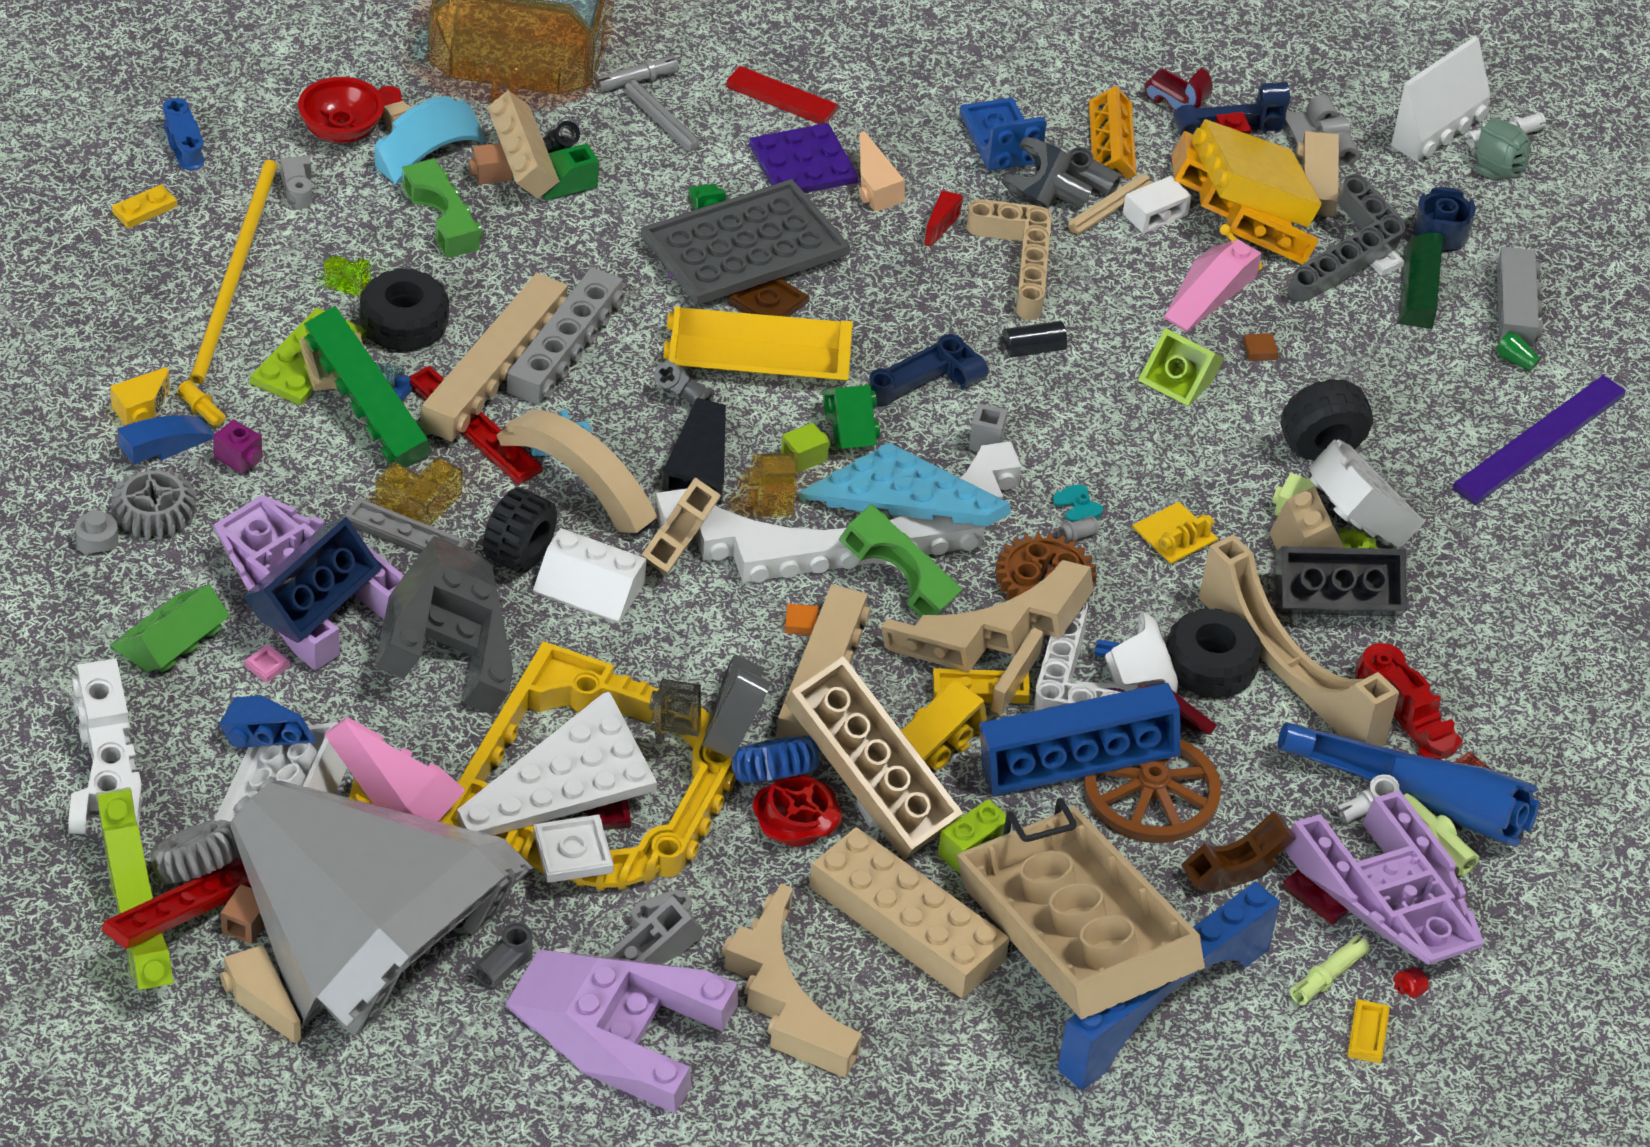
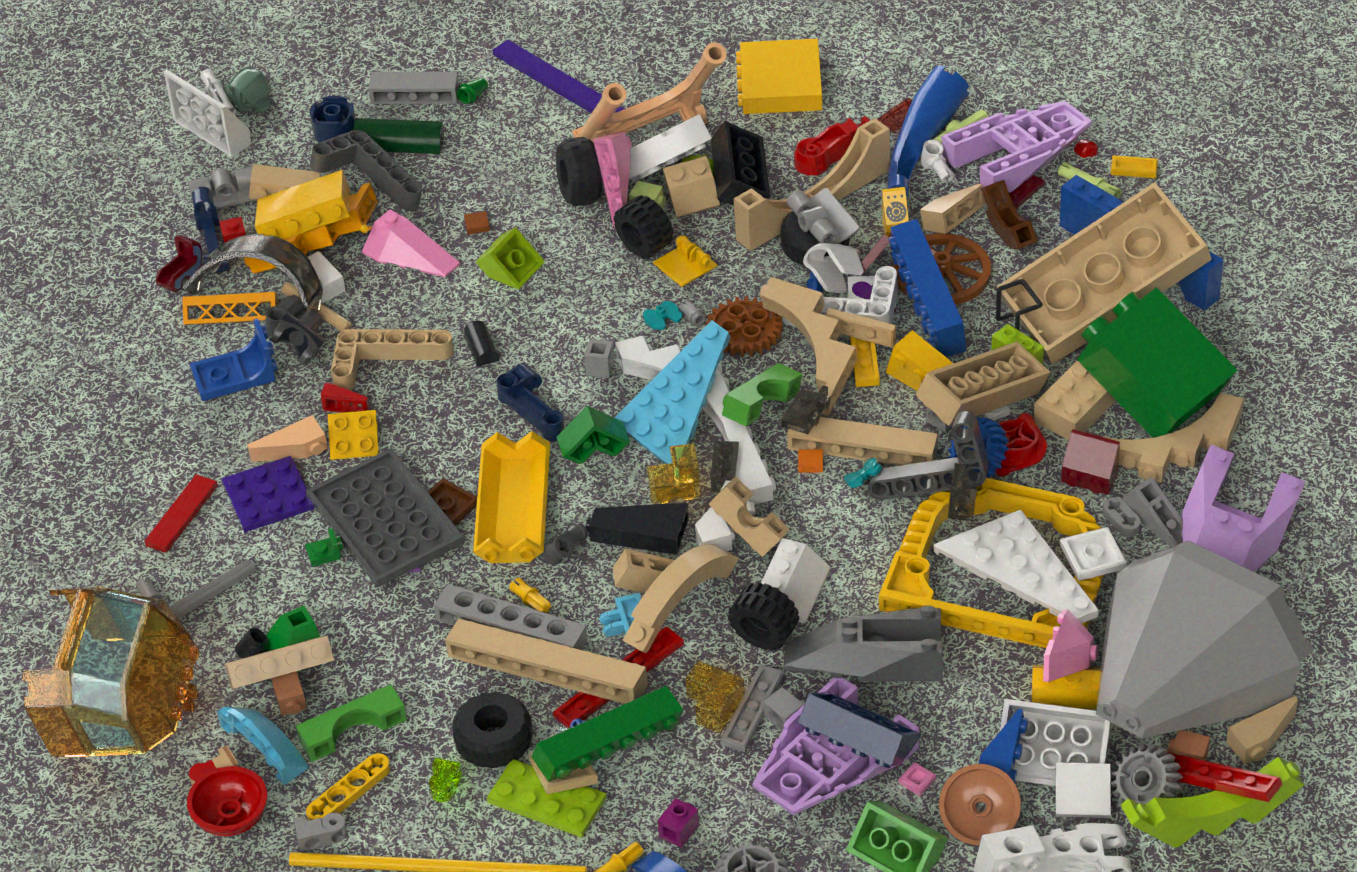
camera: 85 degrees left, 0 degrees up
(197, 697) = (973, 786): none -> nougat dish
(206, 799) = (1083, 790): none -> white tile
(350, 210) = (345, 787): none -> yellow beam
(392, 546) = (780, 707): none -> light grey brick
(607, 356) = (530, 596): none -> yellow axle
(625, 440) = (638, 570): none -> tan slope
(744, 879) = (1090, 462): none -> slope
(764, 658) = (870, 468): none -> teal piece
(788, 521) = (723, 464): none -> clear smoke bracket
(807, 444) = (627, 465): lime brick -> none
(863, 599) = (806, 410): none -> clear smoke bracket
(885, 225) = (353, 434): none -> yellow hinge
(897, 943) = (1154, 362): none -> green brick
(1161, 137) = (272, 250): none -> clear smoke windscreen
(1217, 636) = (822, 216): none -> light grey panel
(1219, 476) = (643, 226): none -> black tyre
(1244, 734) = (894, 207): none -> yellow slope
(1258, 793) = (952, 209): none -> tan slope
(1303, 424) = (614, 164): none -> bright pink wedge
(1401, 442) = (681, 99): none -> light nougat arch
(1554, 653) = (779, 76): none -> yellow brick

